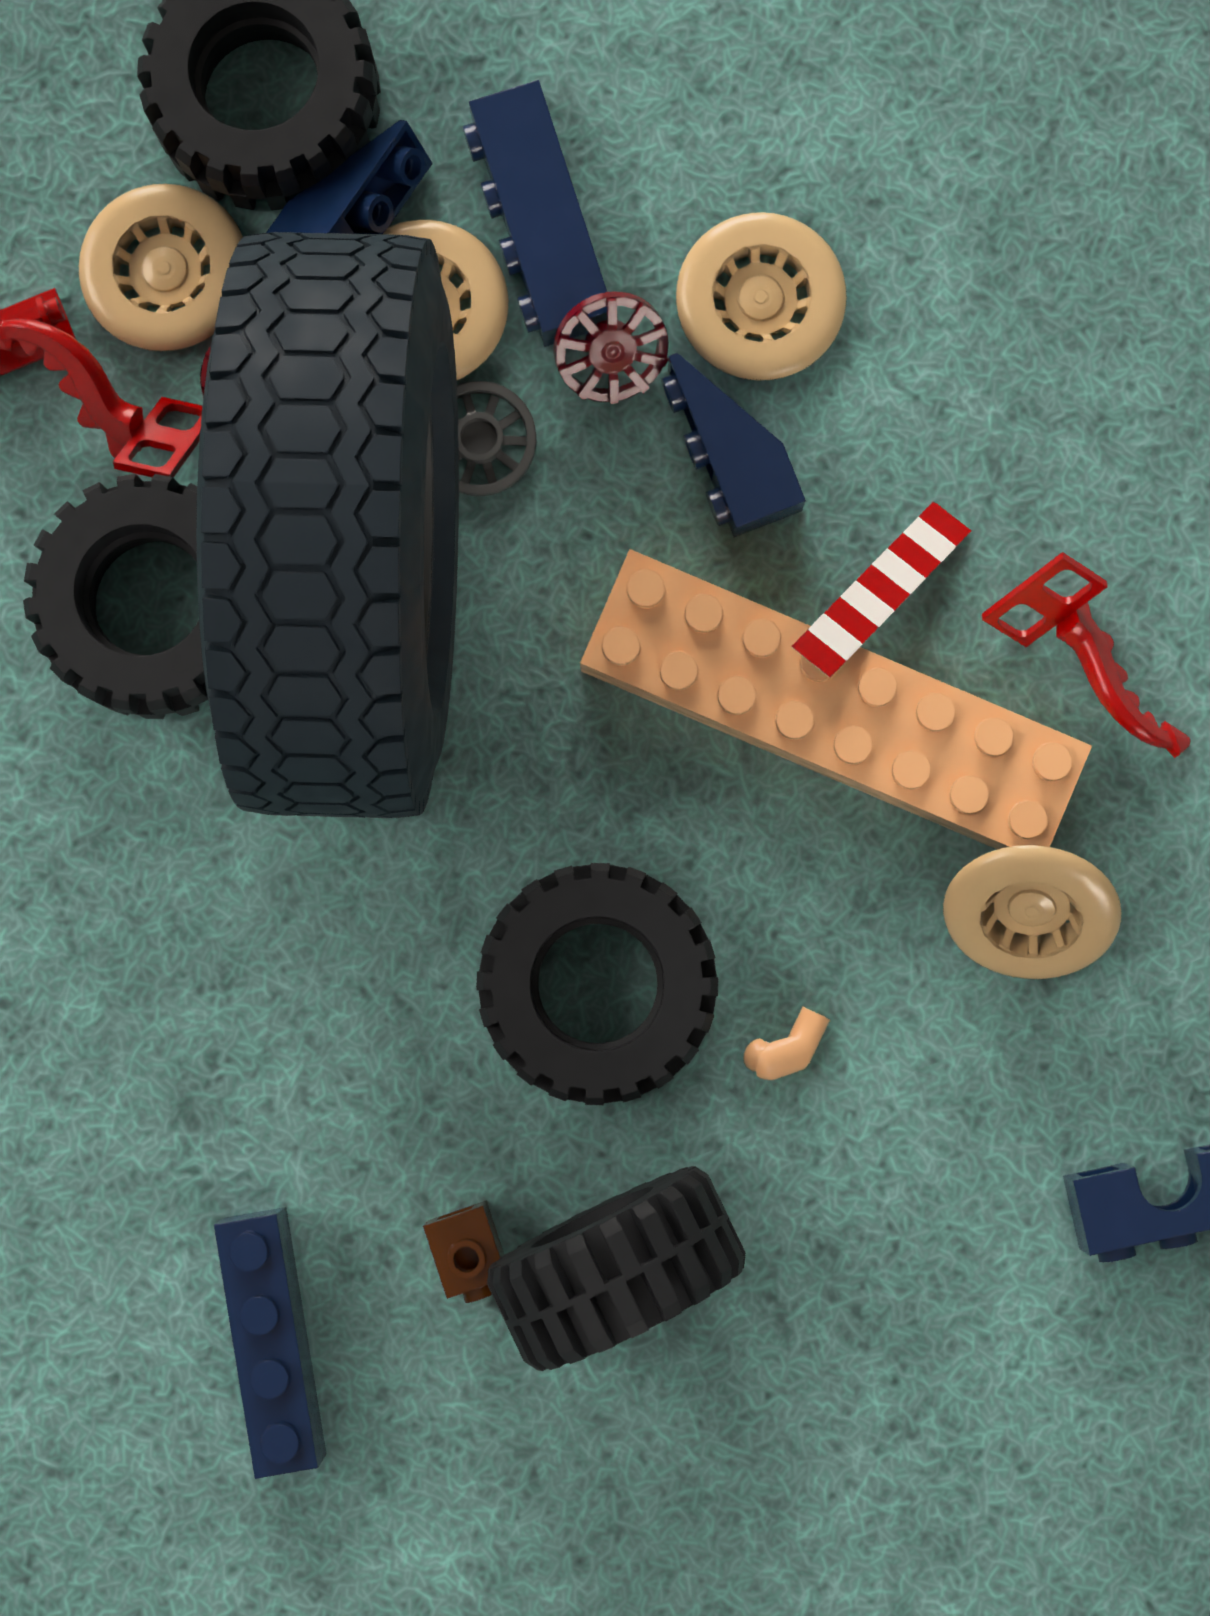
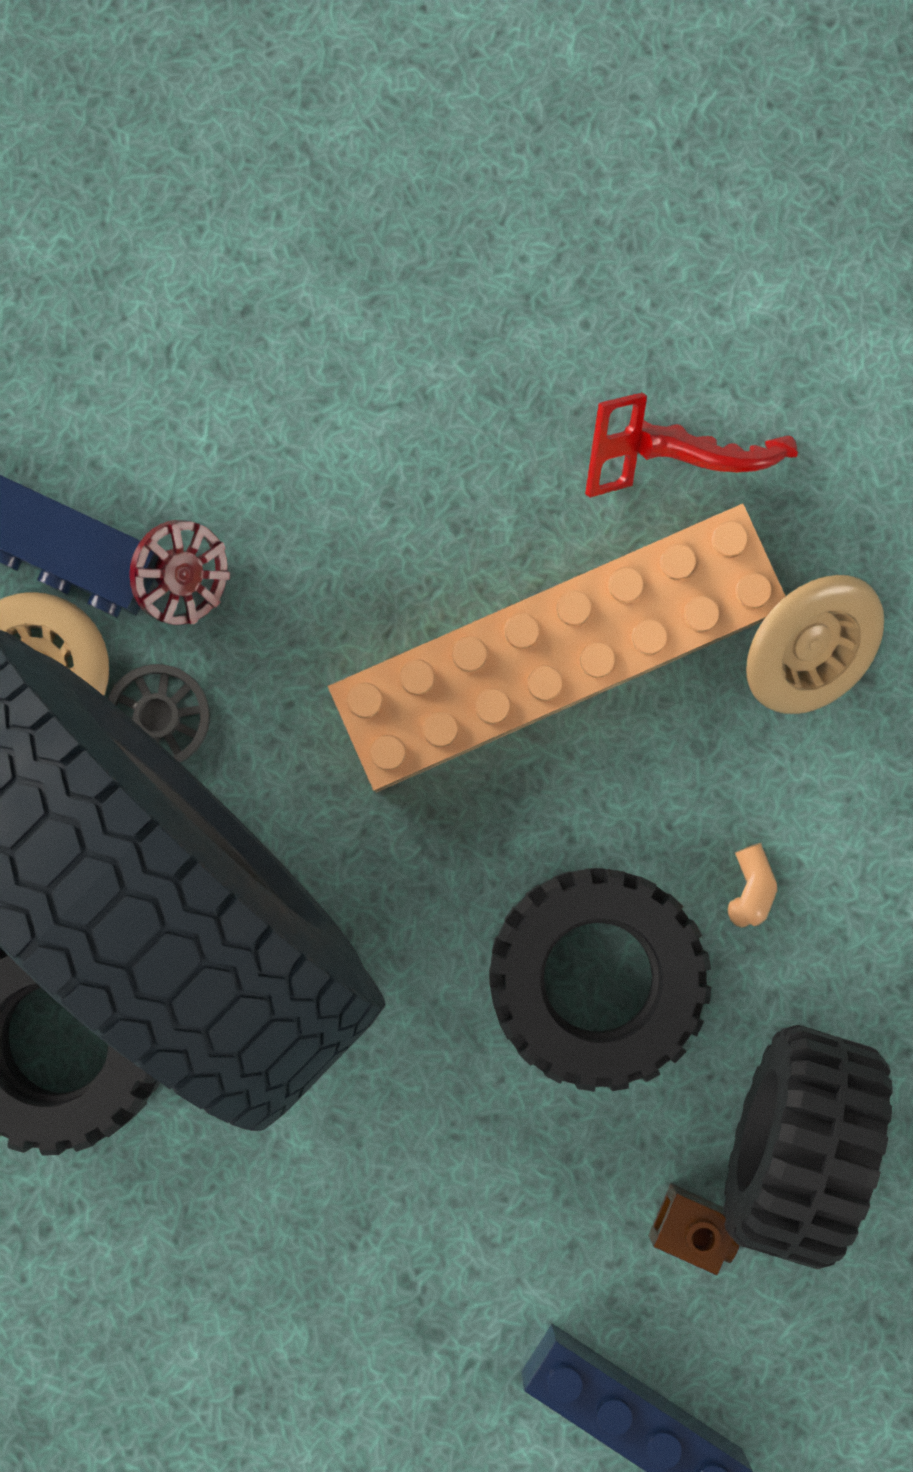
camera: 55 degrees left, 0 degrees up
(743, 459) = (334, 554): dark blue slope -> none
(761, 296) = (238, 442): tan wheel -> none
(881, 589) = (509, 545): sticker -> none

